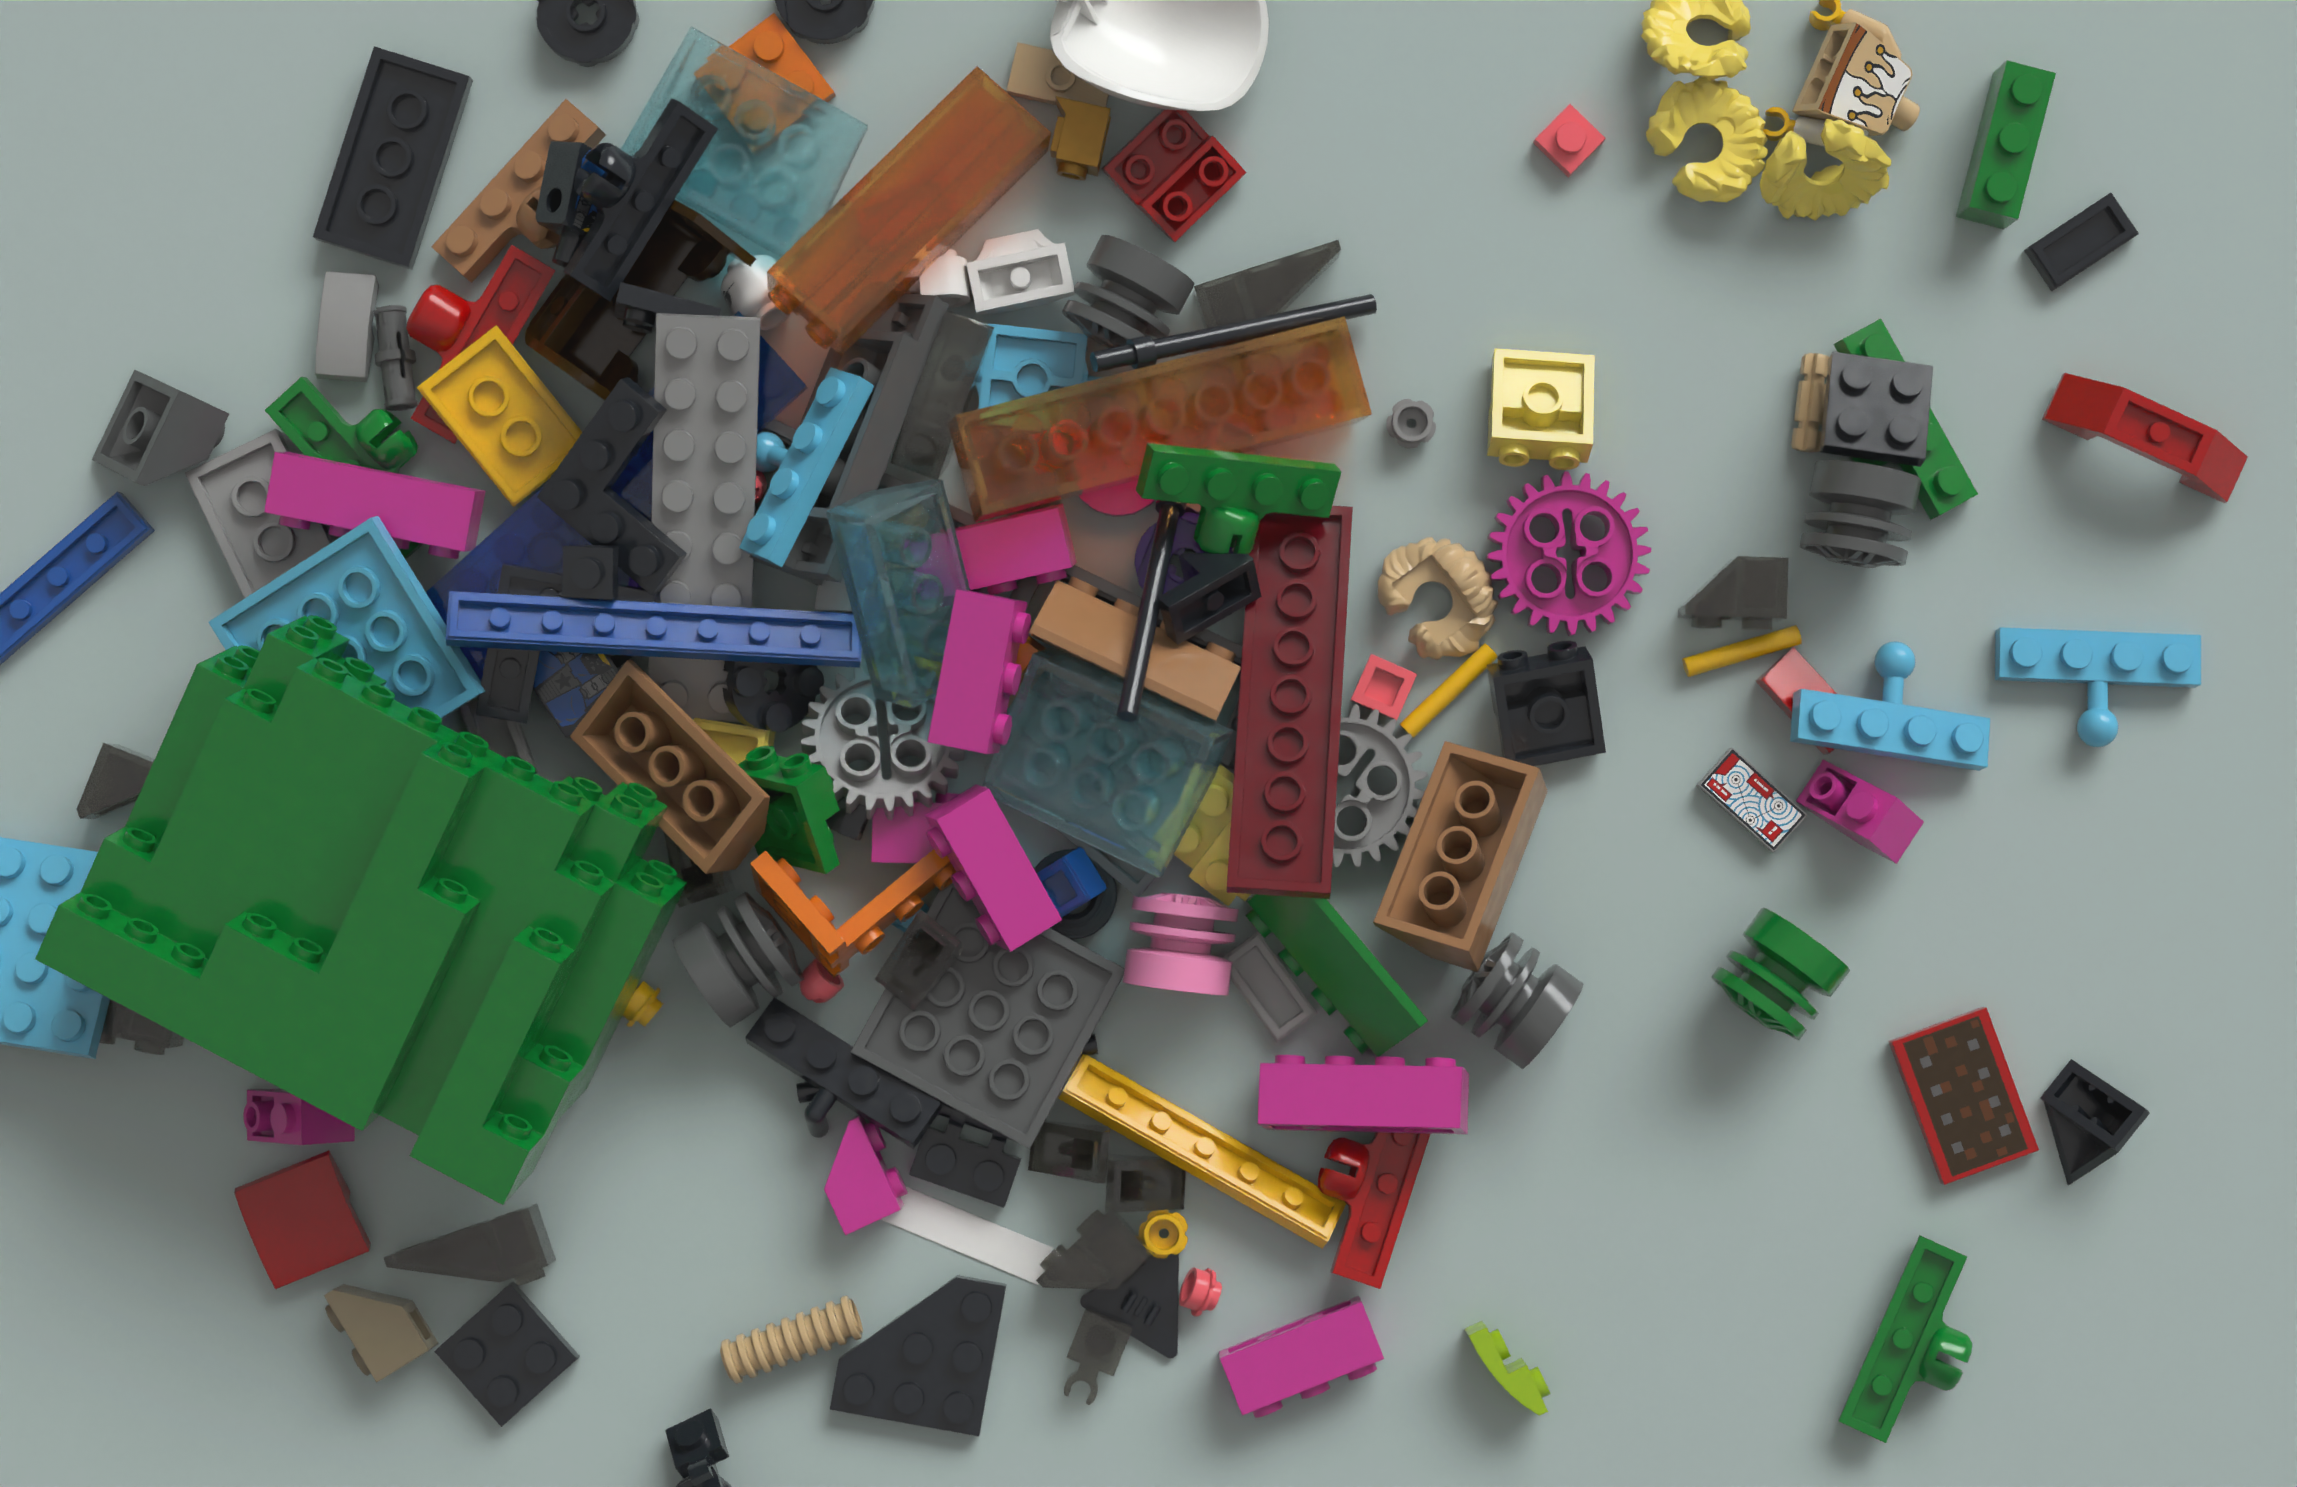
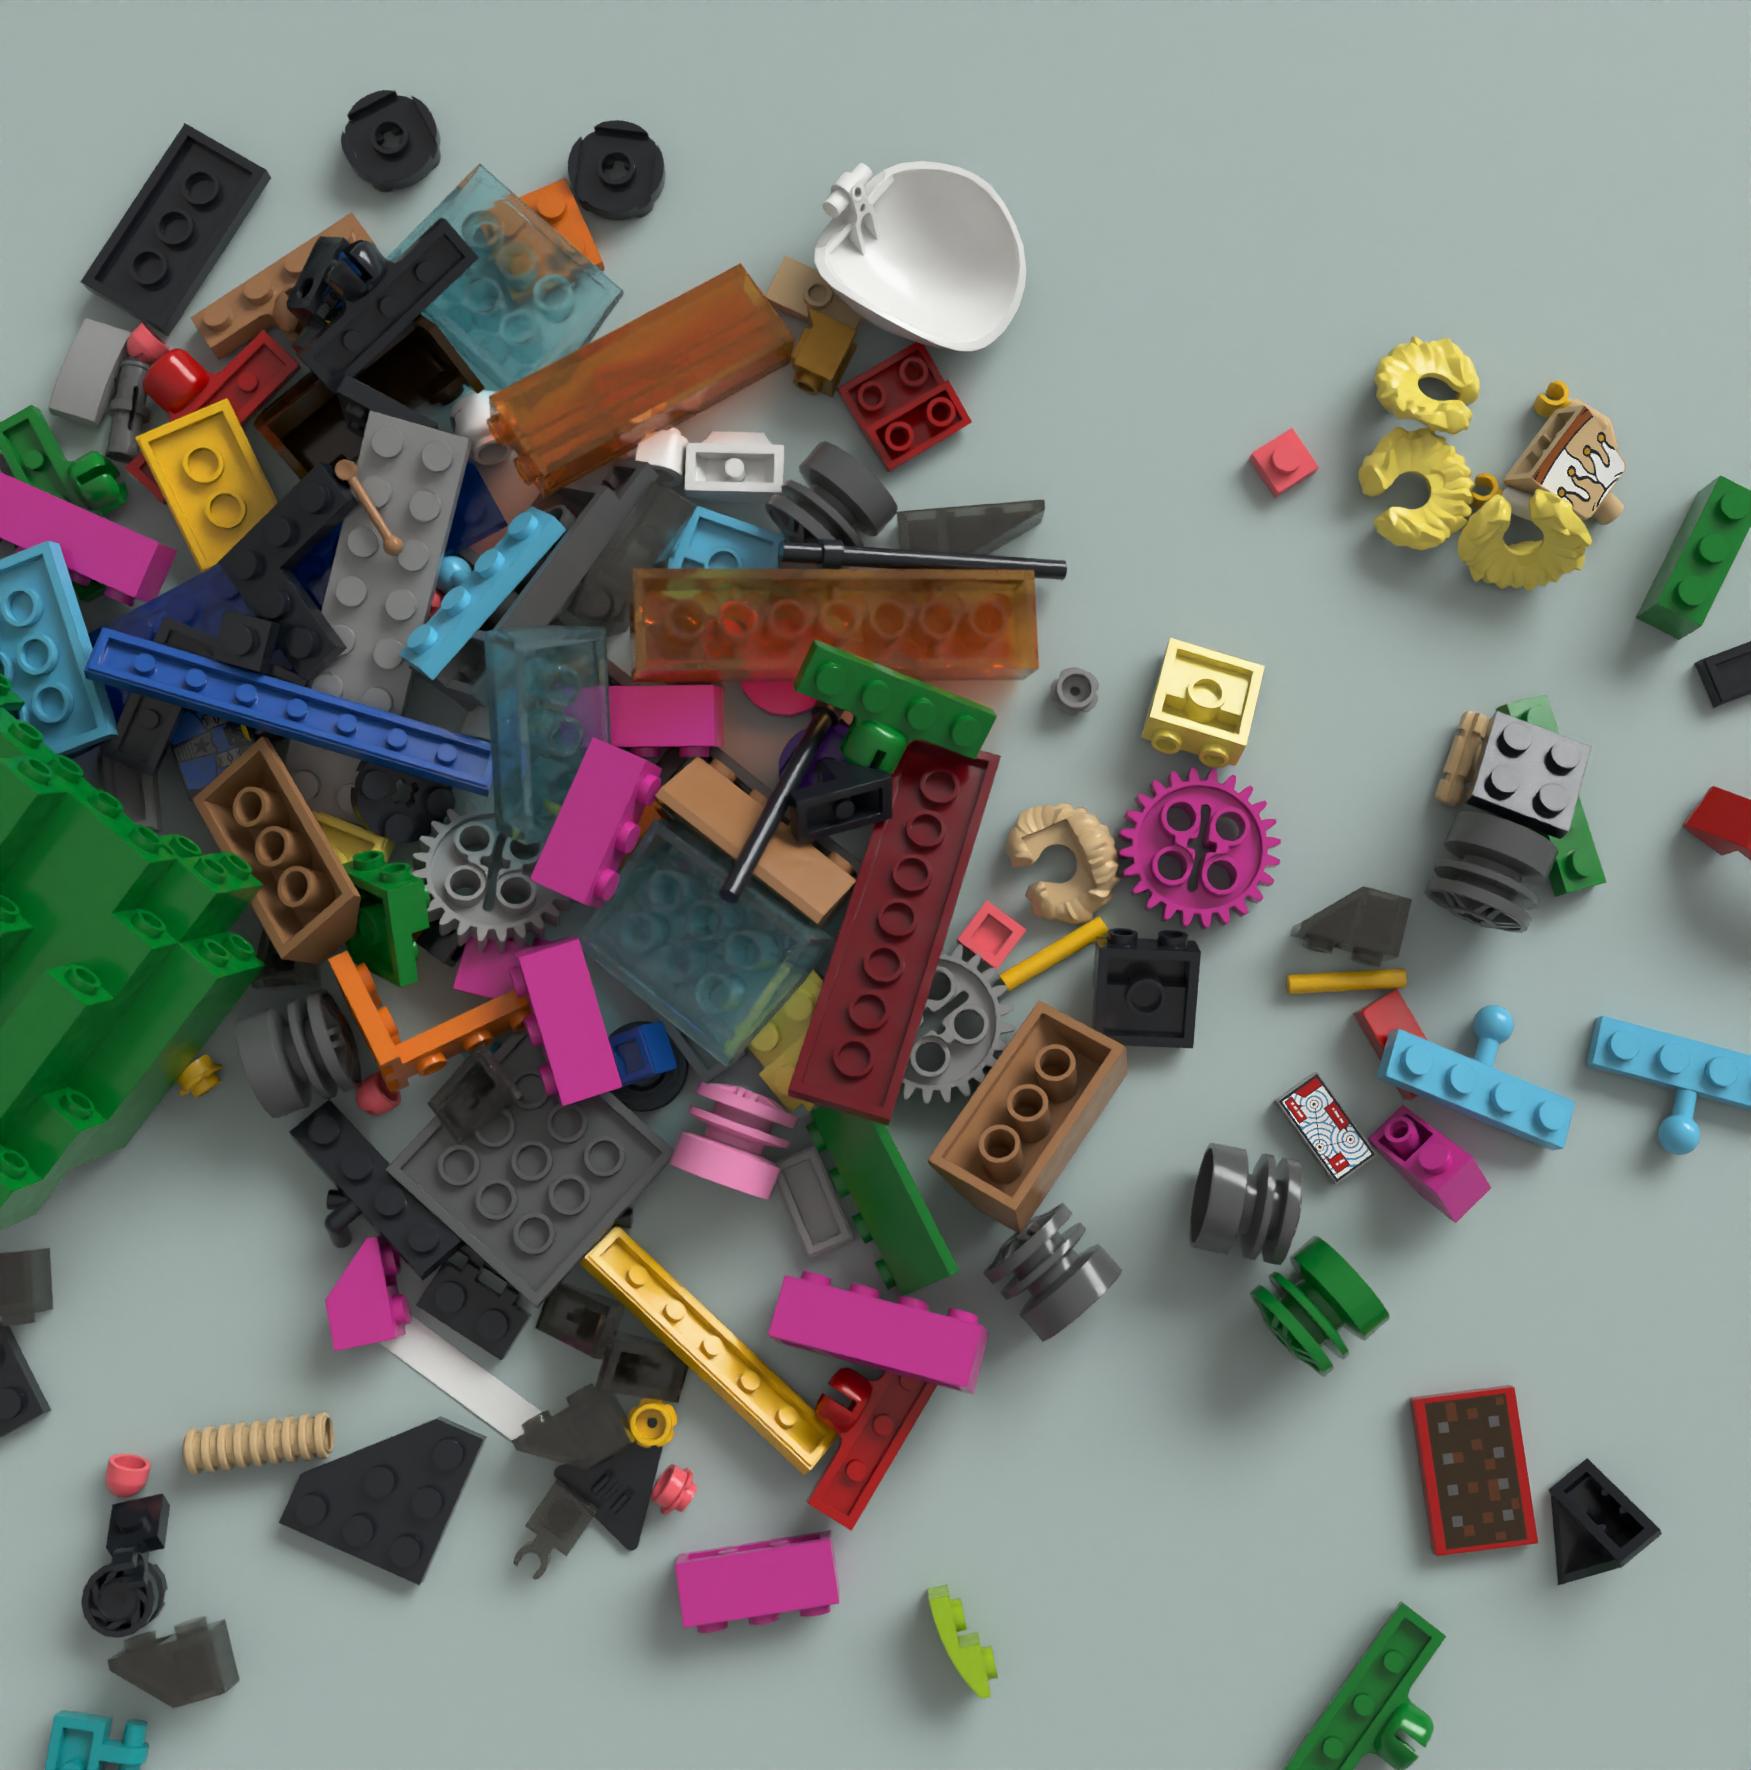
camera: 10 degrees right, 5 degrees down
(395, 286) = (146, 345): none -> coral hinge
(649, 381) = (348, 471): none -> medium nougat hinge
(672, 1398) = (126, 1474): none -> coral hinge
(1697, 892) = (1256, 1205): none -> dark grey wheel

